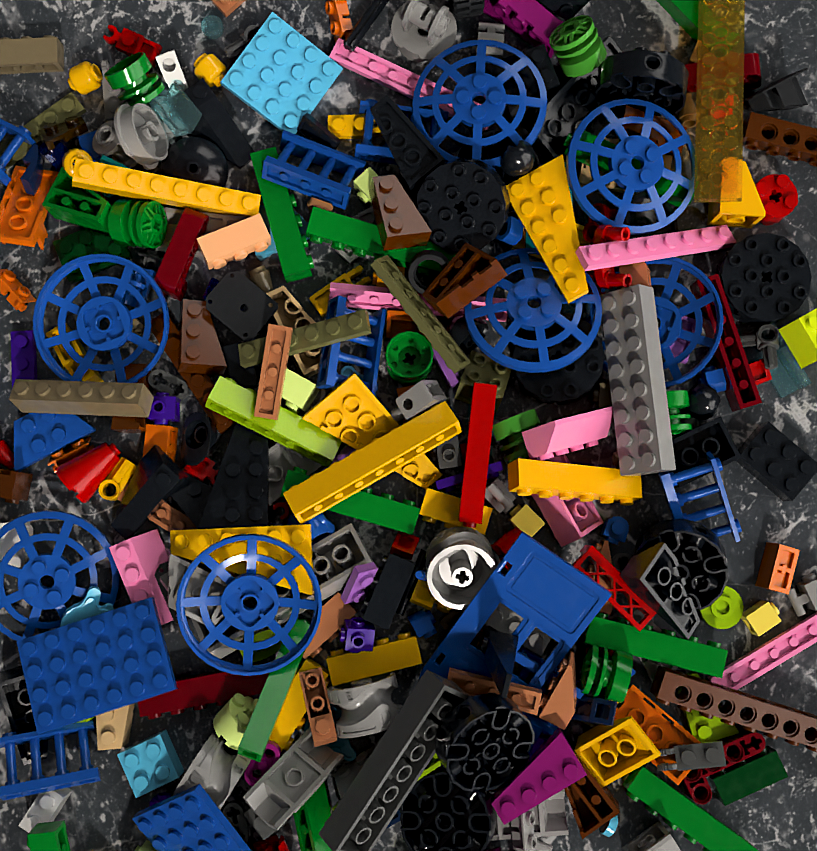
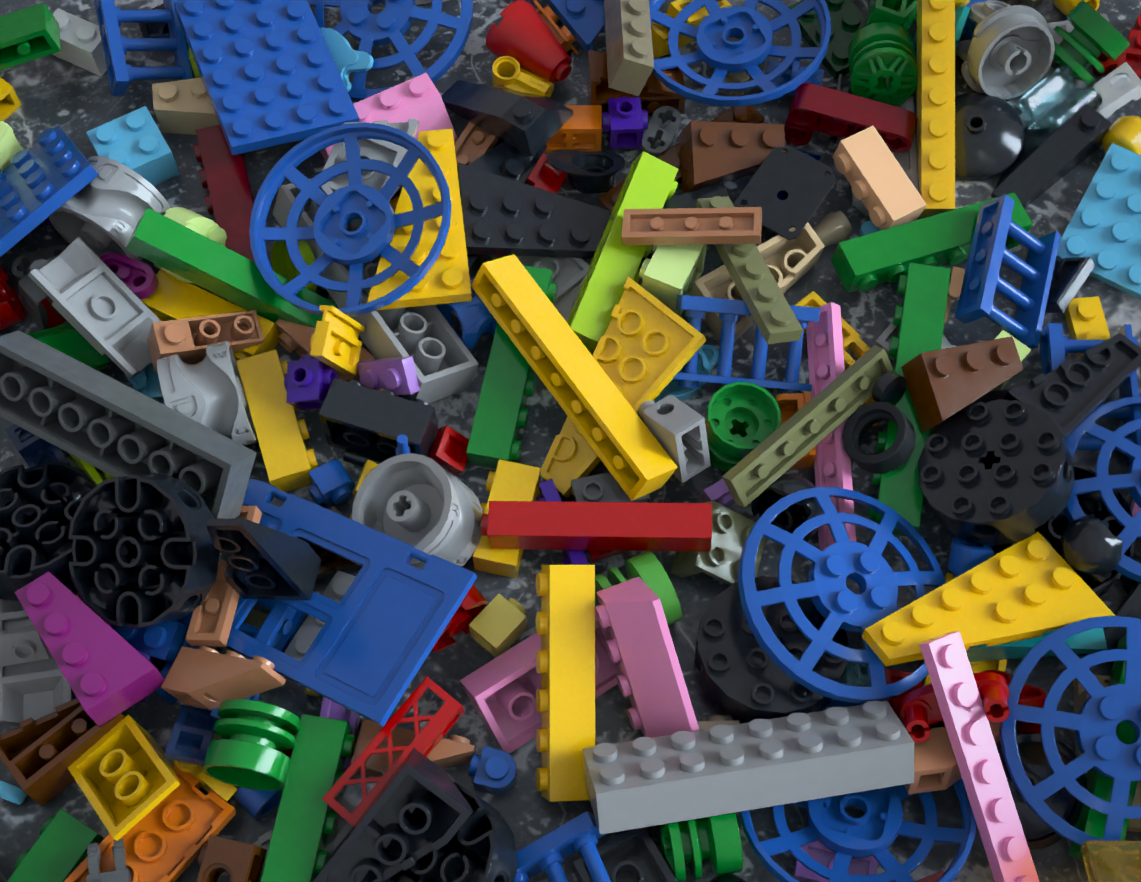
camera: 85 degrees right, 20 degrees down
(338, 616) = (337, 340): none -> yellow plate
(398, 260) = (889, 388): none -> black tile
(463, 280) = (871, 473): reddish brown wedge -> none
(499, 497) = (523, 579): light grey brick -> none

